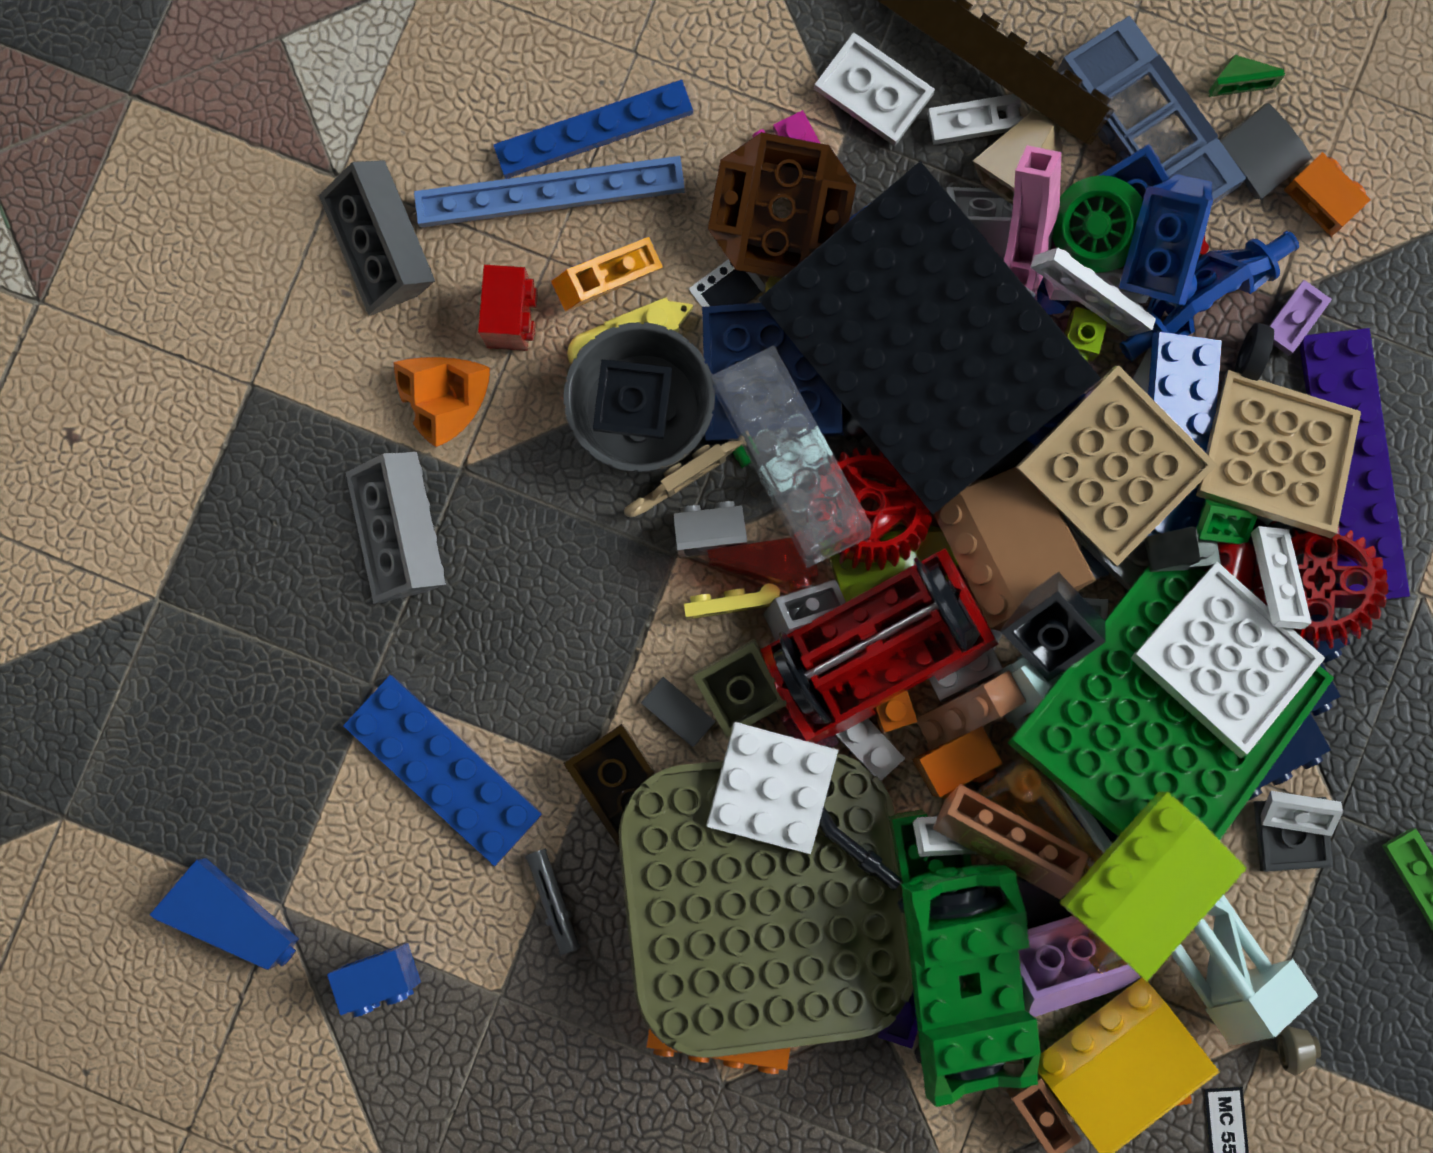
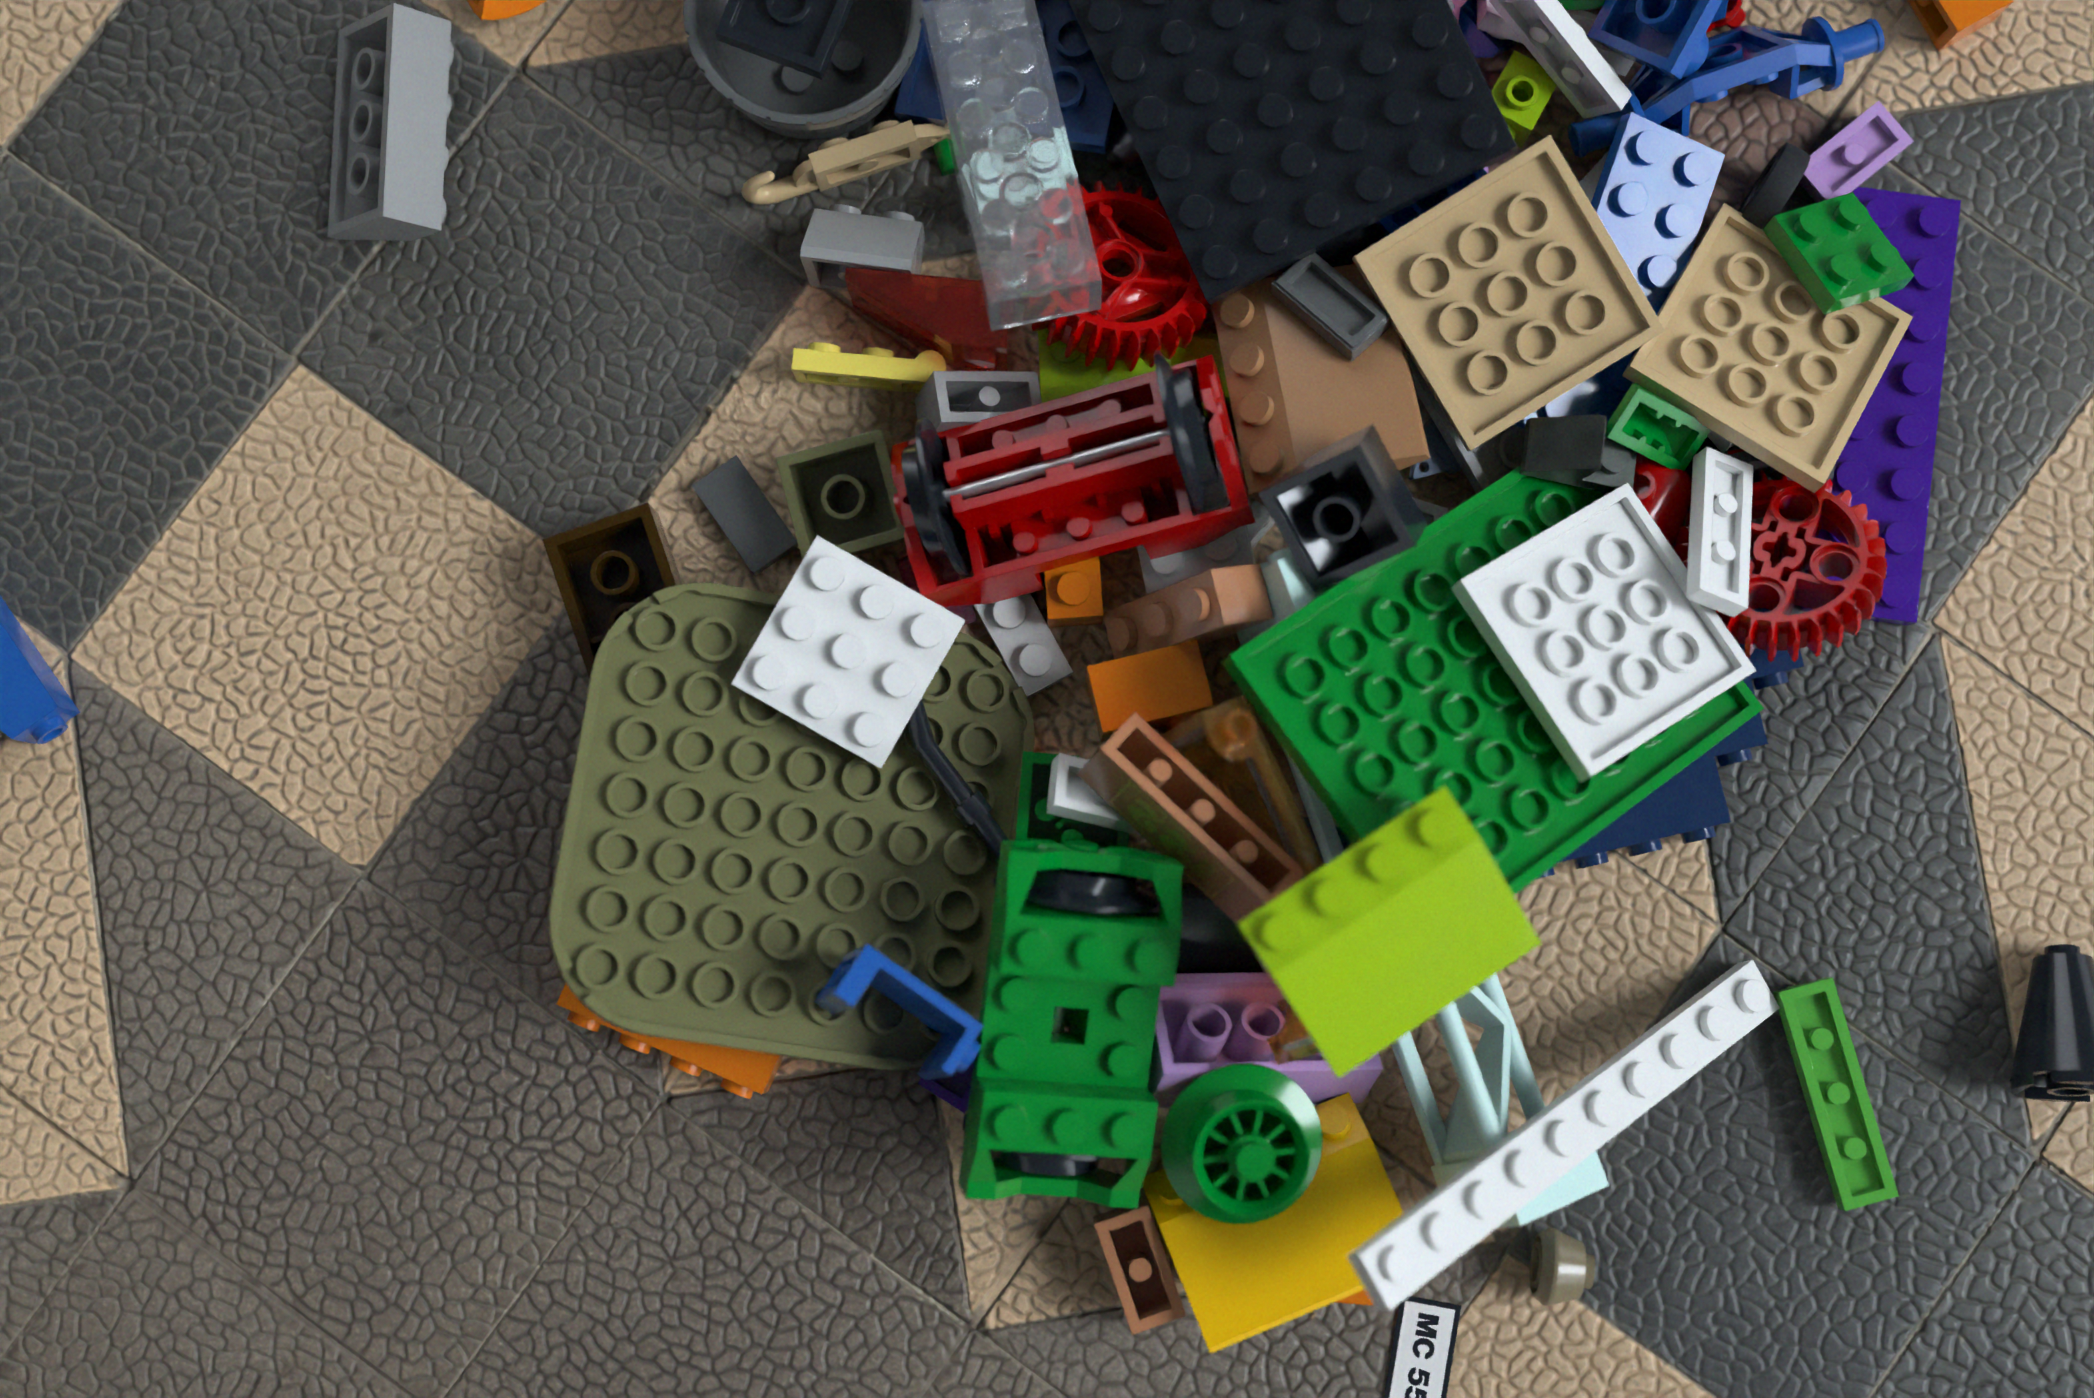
camera: 10 degrees right, 0 degrees up
(380, 977) = (169, 796): blue brick -> none
(443, 770) = (364, 513): blue plate -> none
(553, 902) = (476, 752): dark grey pin -> none
(834, 986) = (869, 967): none -> blue panel
(1009, 498) = (1331, 305): none -> dark grey tile
(1090, 1028) = (1241, 1143): none -> green piece
(1283, 974) = (1560, 1136): none -> white plate
(1290, 849) = (1641, 939): dark grey tile -> none
(1301, 813) = (1660, 907): white plate -> none
(1305, 383) = (1838, 253): none -> green plate

